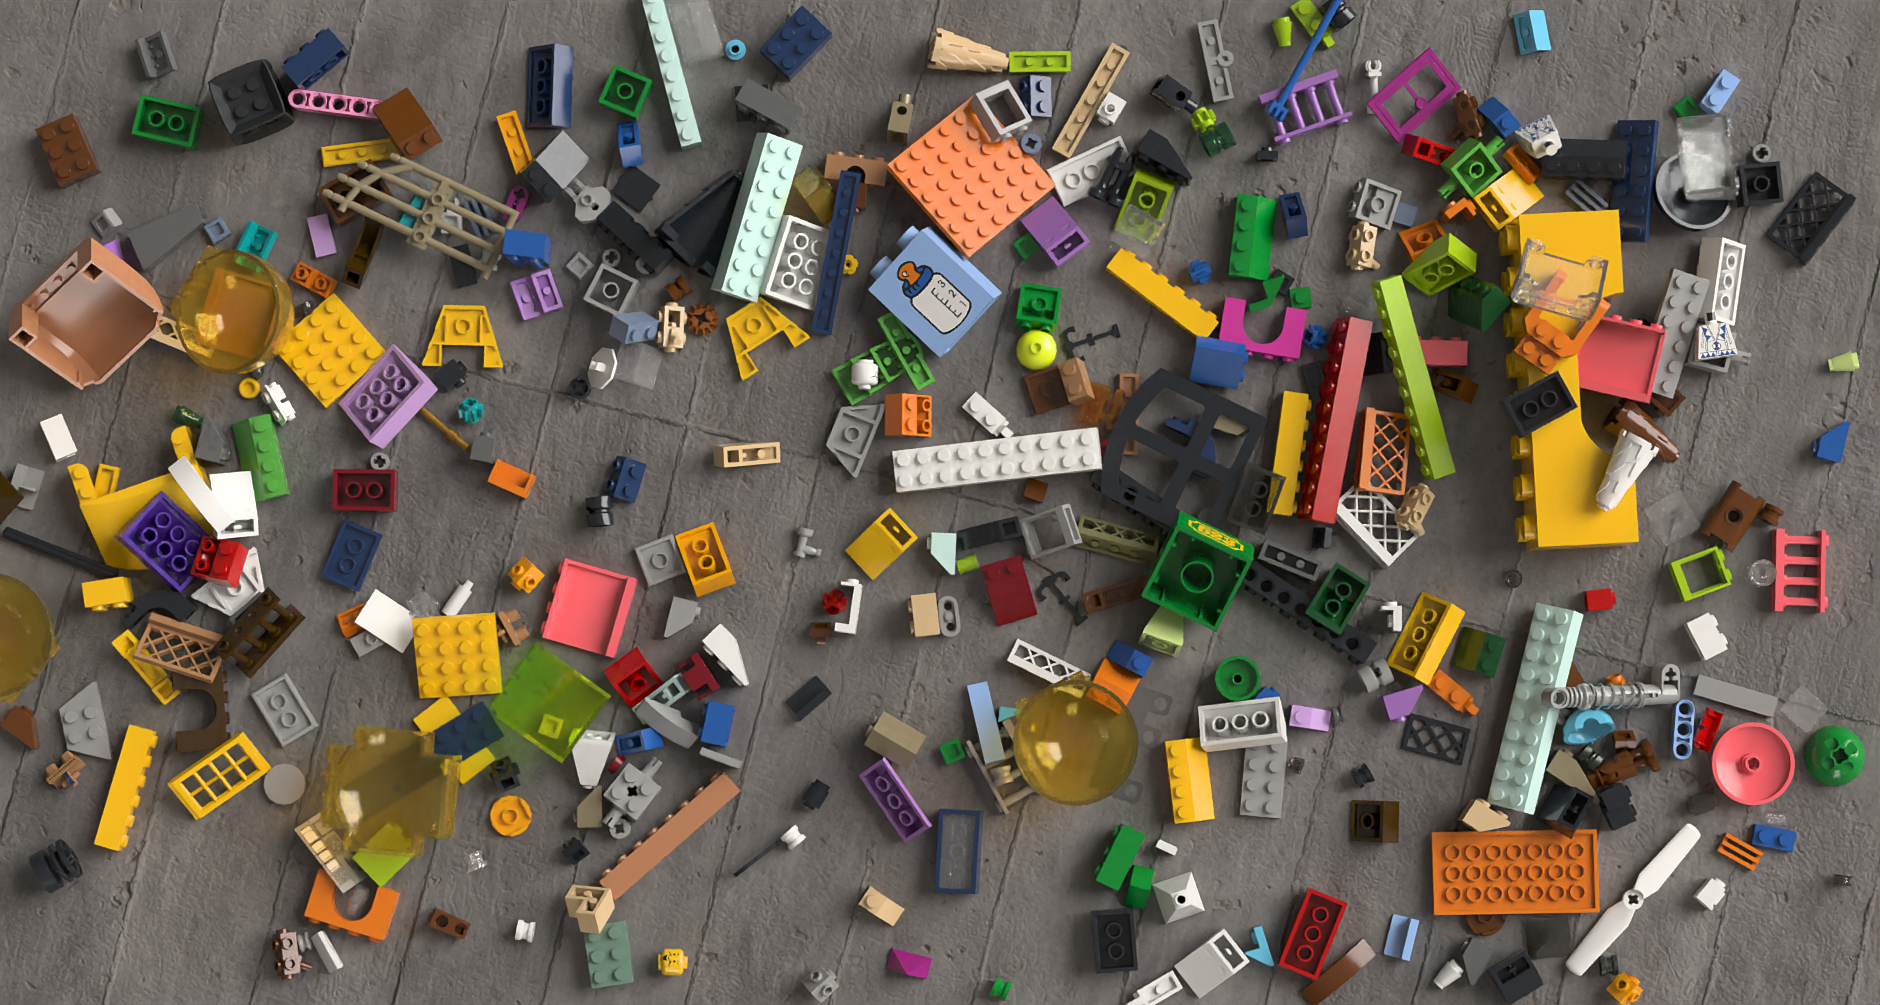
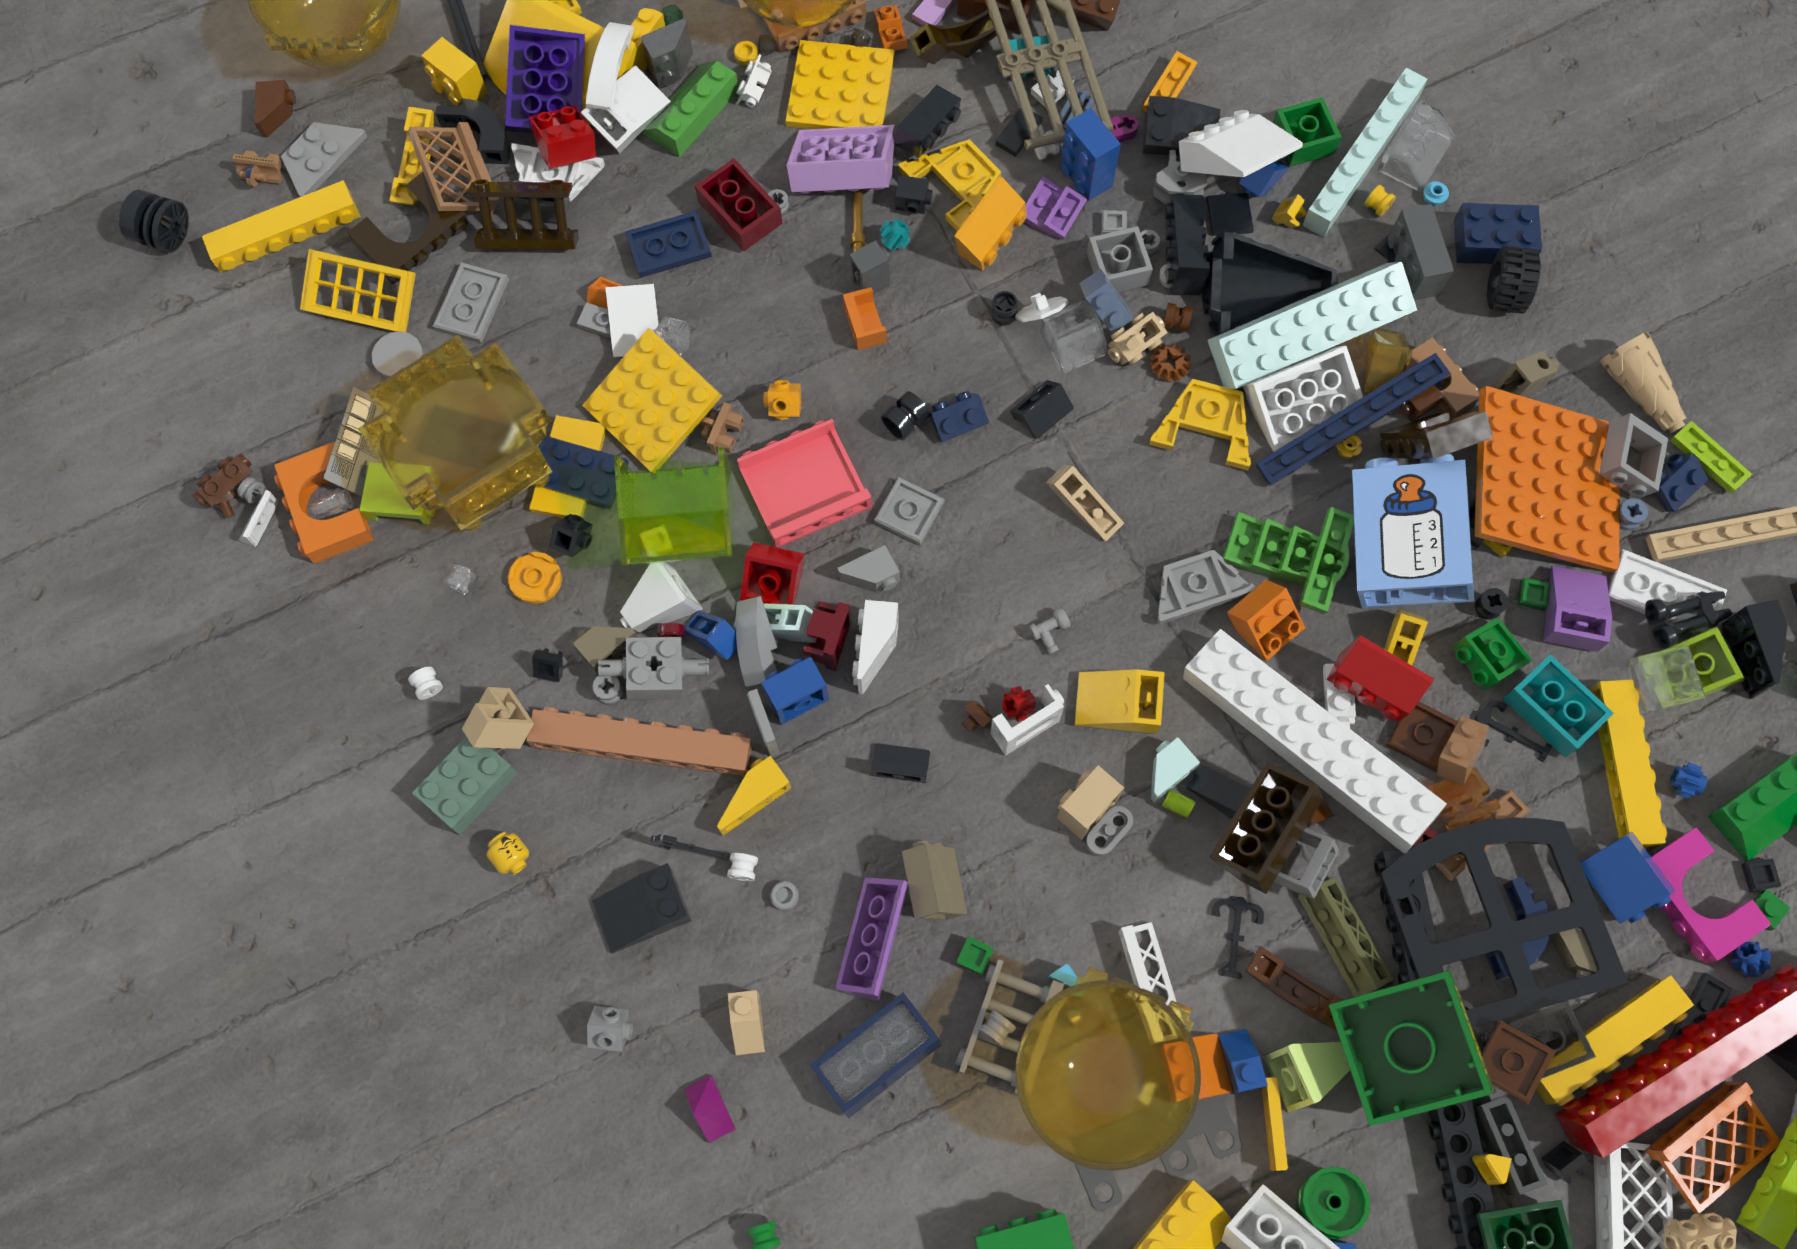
camera: 50 degrees right, 15 degrees down
(410, 320) = (928, 121): none -> black brick
(449, 923) = (374, 604): reddish brown leg -> none
(458, 599) = (710, 362): white cylinder -> none
(521, 349) = (990, 224): none -> light orange slope
(549, 87) = (1247, 73): dark blue slope -> none
(605, 154) = (1236, 146): none -> white slope
(664, 423) = (1043, 408): none -> black panel
(667, 152) = (1288, 210): none -> yellow tile
(705, 559) = (947, 549): light orange slope -> none
(710, 90) = (1380, 200): none -> yellow wheel
(755, 791) = (758, 789): none -> yellow slope
(767, 913) = (641, 908): none -> black slope
(816, 794) = (807, 852): black brick -> none
(828, 827) = (784, 896): none -> light grey tile
(834, 70) = (1513, 279): none -> black tyre
(864, 374) = (1268, 539): white head -> none
(889, 223) = (1435, 435): none -> arch
(986, 723) = (1035, 965): light blue tile -> none
(992, 358) = (1405, 635): none -> yellow slope
(998, 392) = (1379, 679): none -> red slope
(1009, 590) = (1188, 872): dark red slope -> none
(1011, 281) = (1486, 608): none -> black wheel
(1023, 534) = (1267, 827): none -> dark brown slope
(1036, 350) = (1452, 689): neon yellow cylinder -> none
(1098, 303) = (1558, 706): none -> teal slope
(1110, 109) = (1742, 558): white brick -> none
(1175, 671) = (1274, 1125): none -> yellow tile
(1252, 520) = (1515, 1061): none -> reddish brown tile
(1271, 287) = (1753, 867): green slope -> none
(1291, 582) = (1493, 1168): none -> yellow slope

